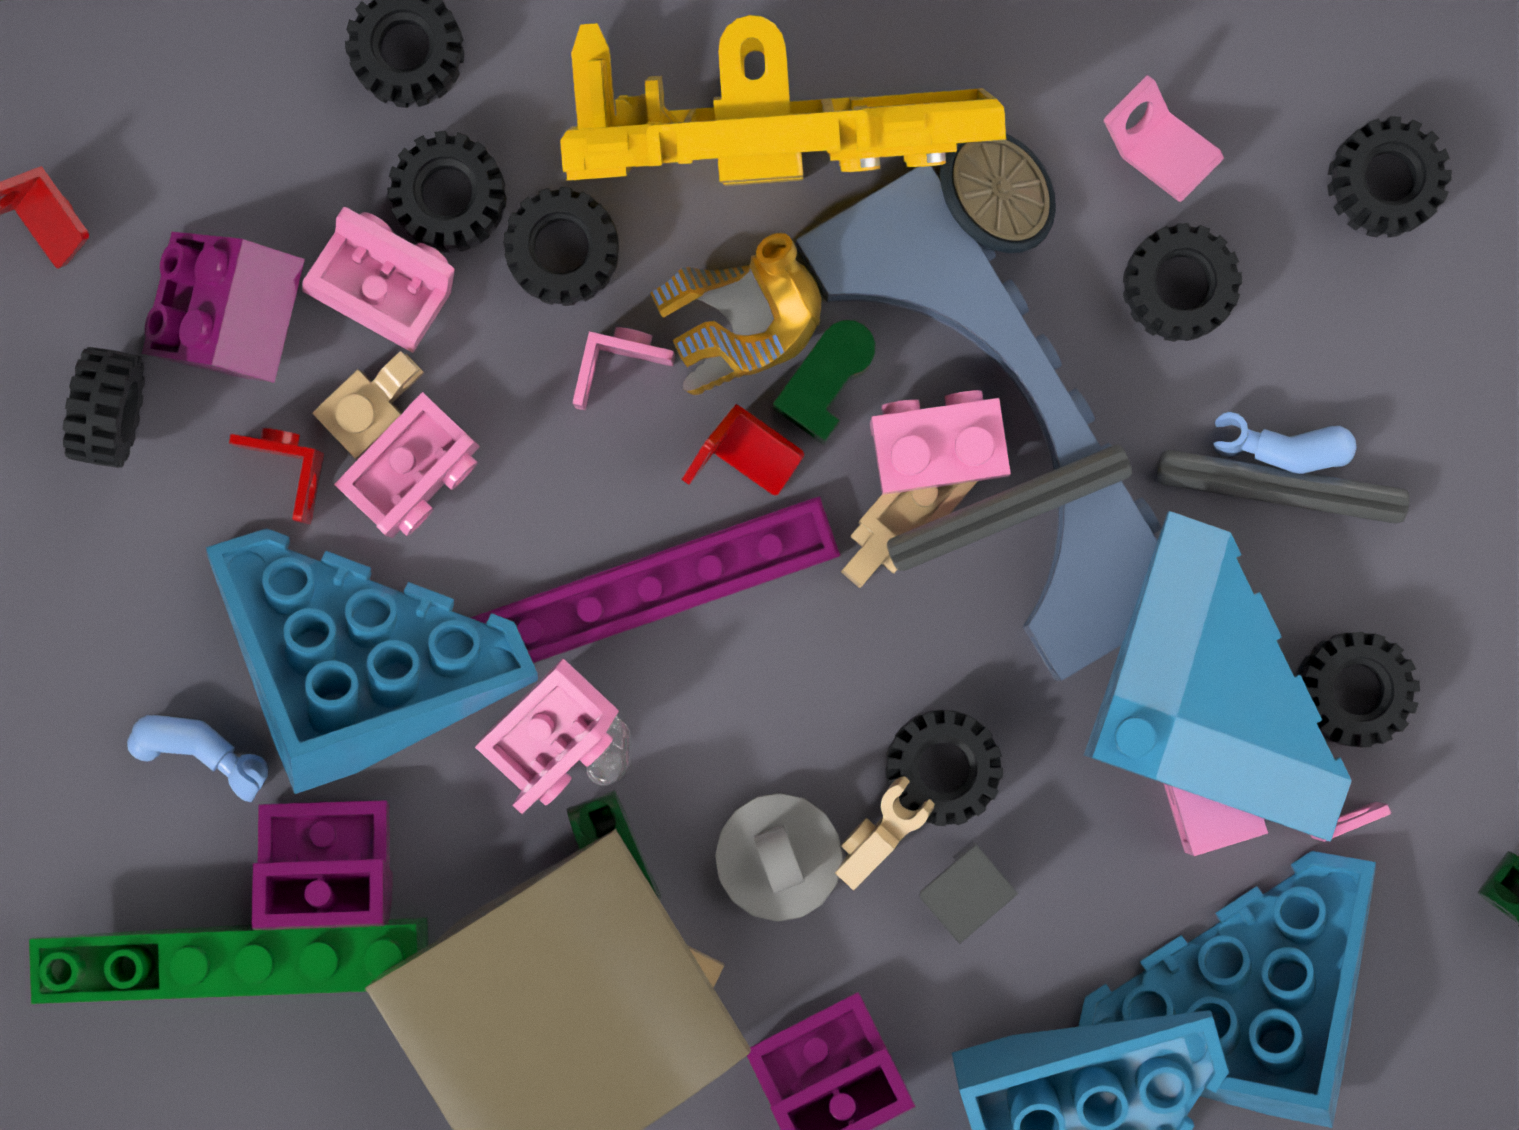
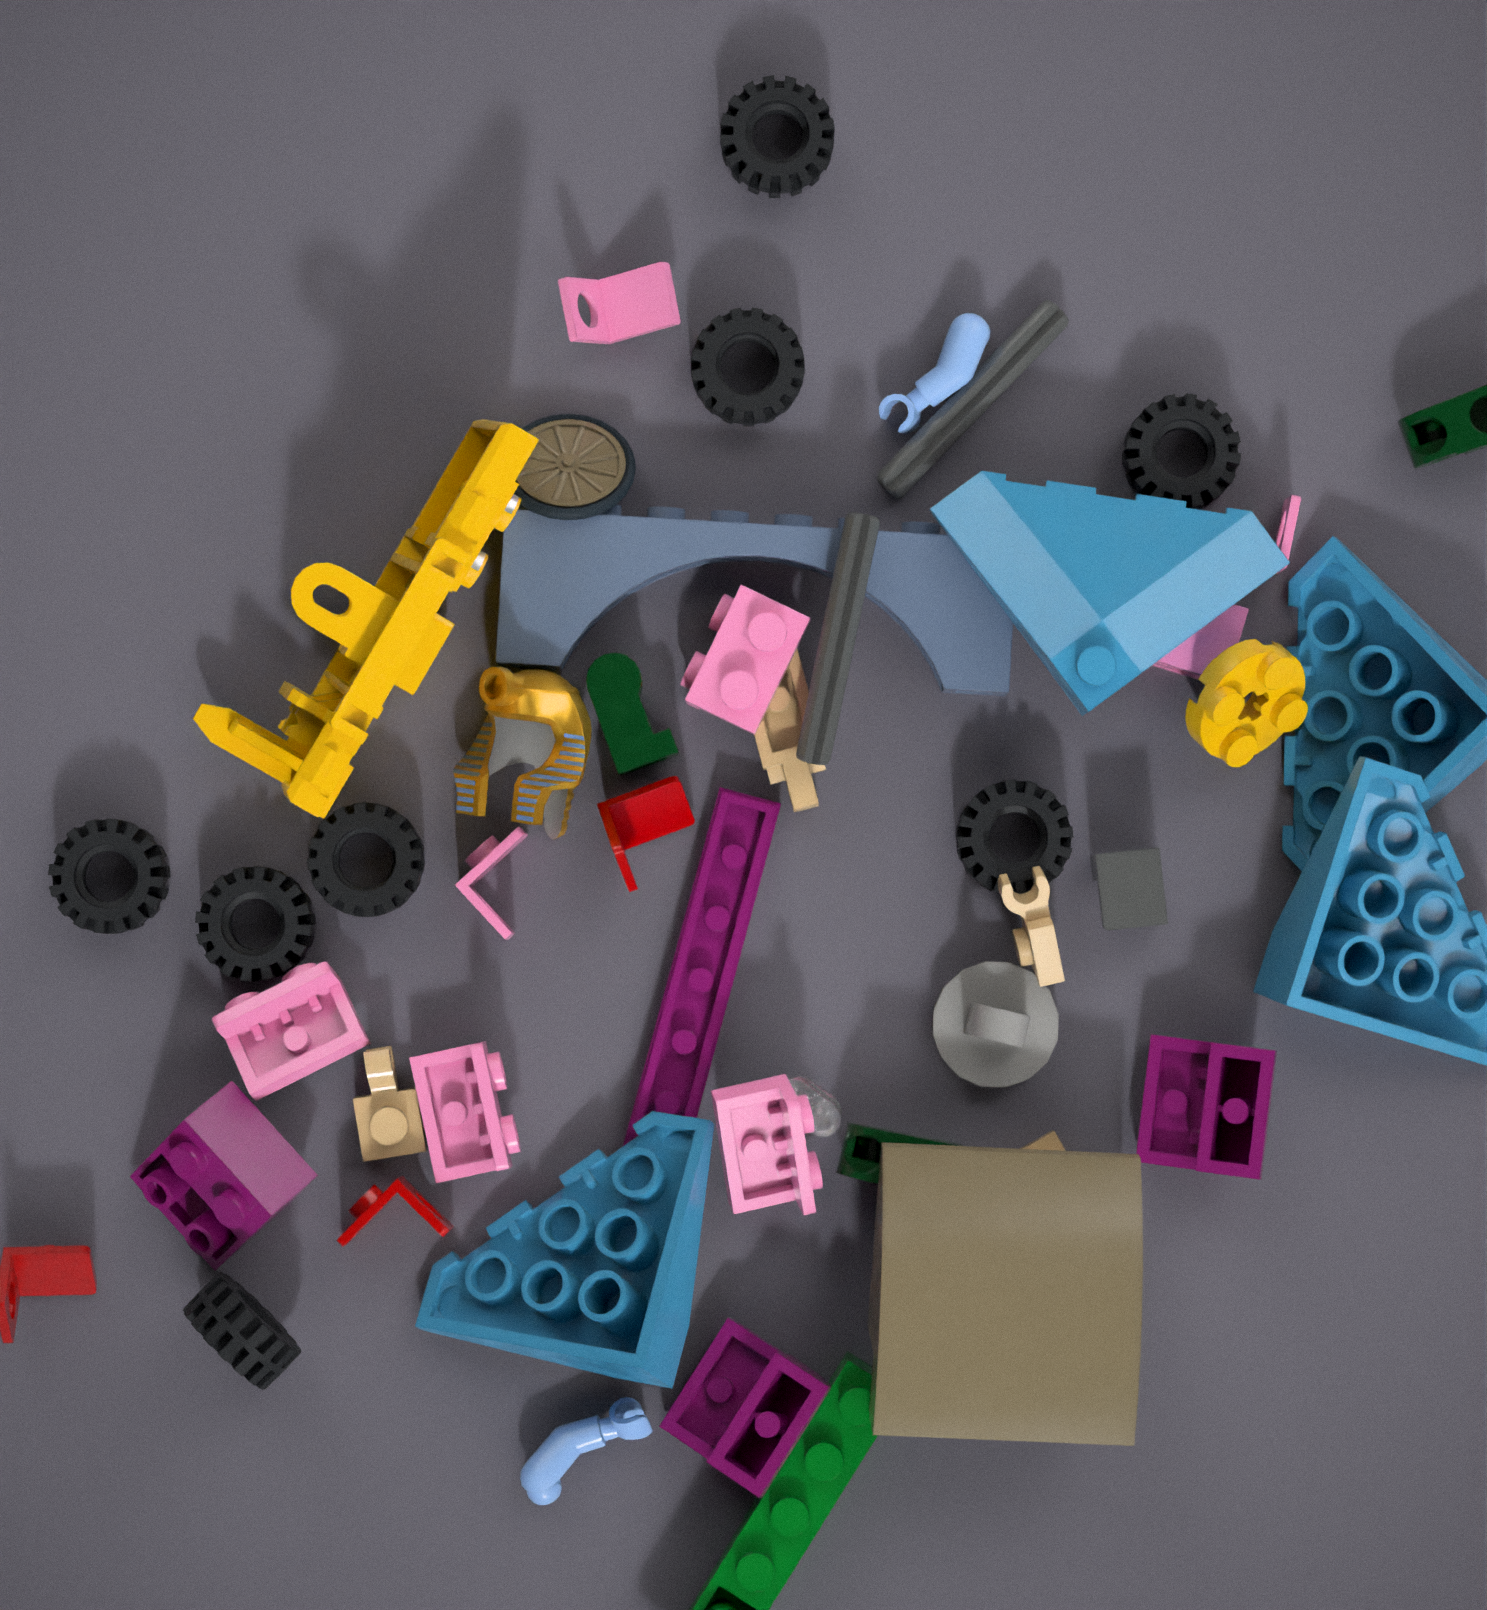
camera: 55 degrees left, 0 degrees up
(1160, 888) = (1239, 729): none -> yellow plate

